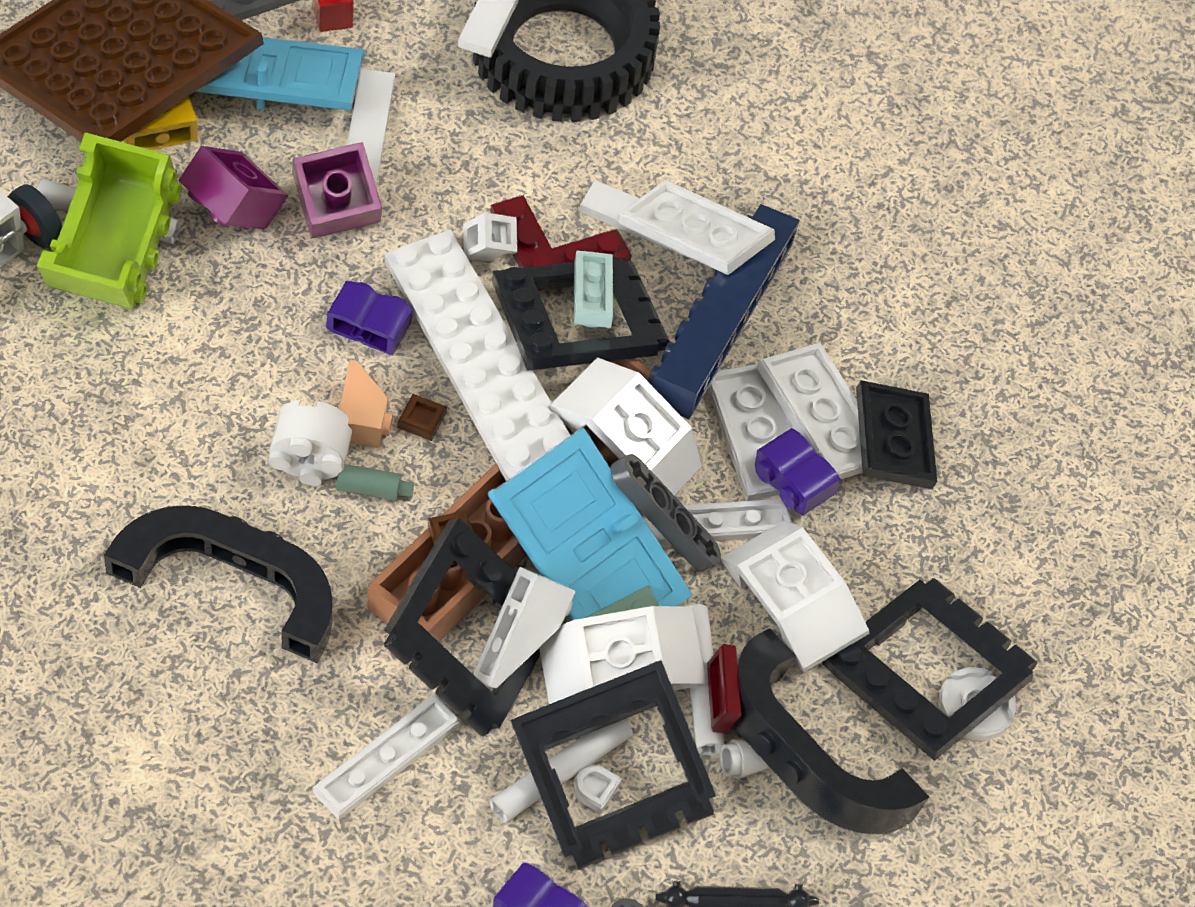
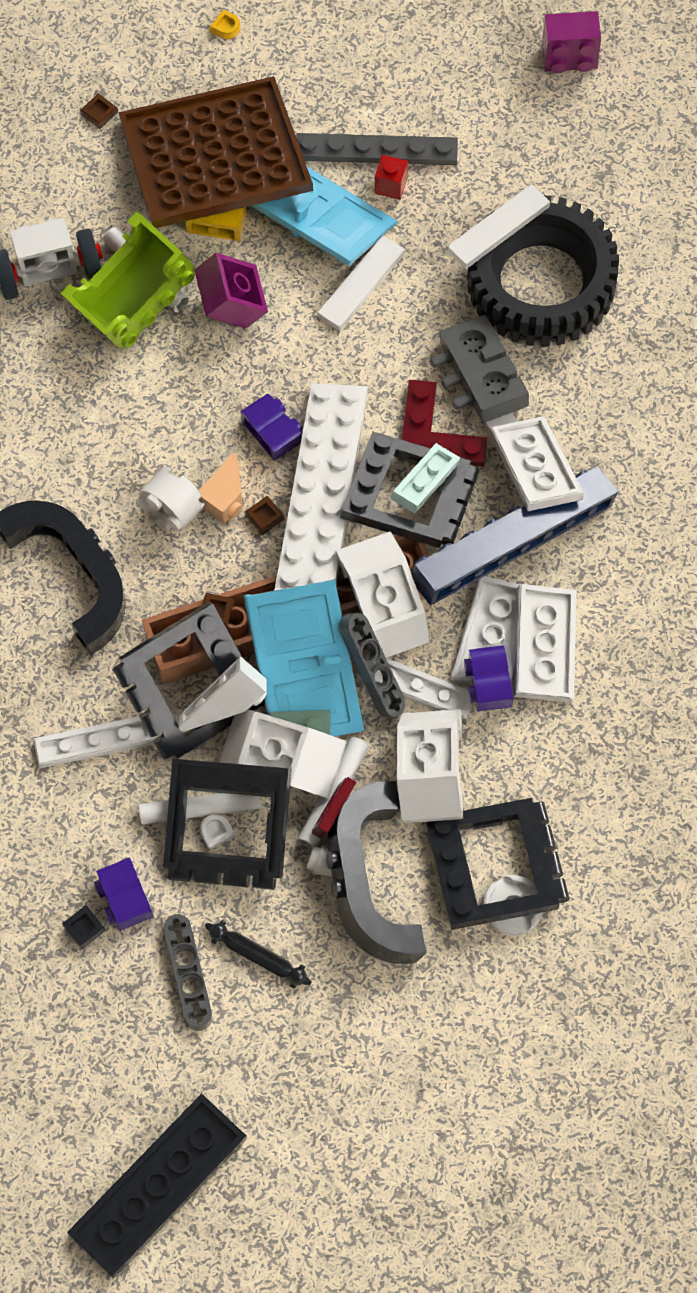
camera: 40 degrees right, 10 degrees up
(337, 190) = (301, 322): brick -> none
(373, 483) = (200, 547): sand green cylinder -> none
(489, 237) = (387, 405): white brick -> none
(566, 160) = (481, 369): none -> dark grey piece
(896, 434) = (585, 684): black tile -> none

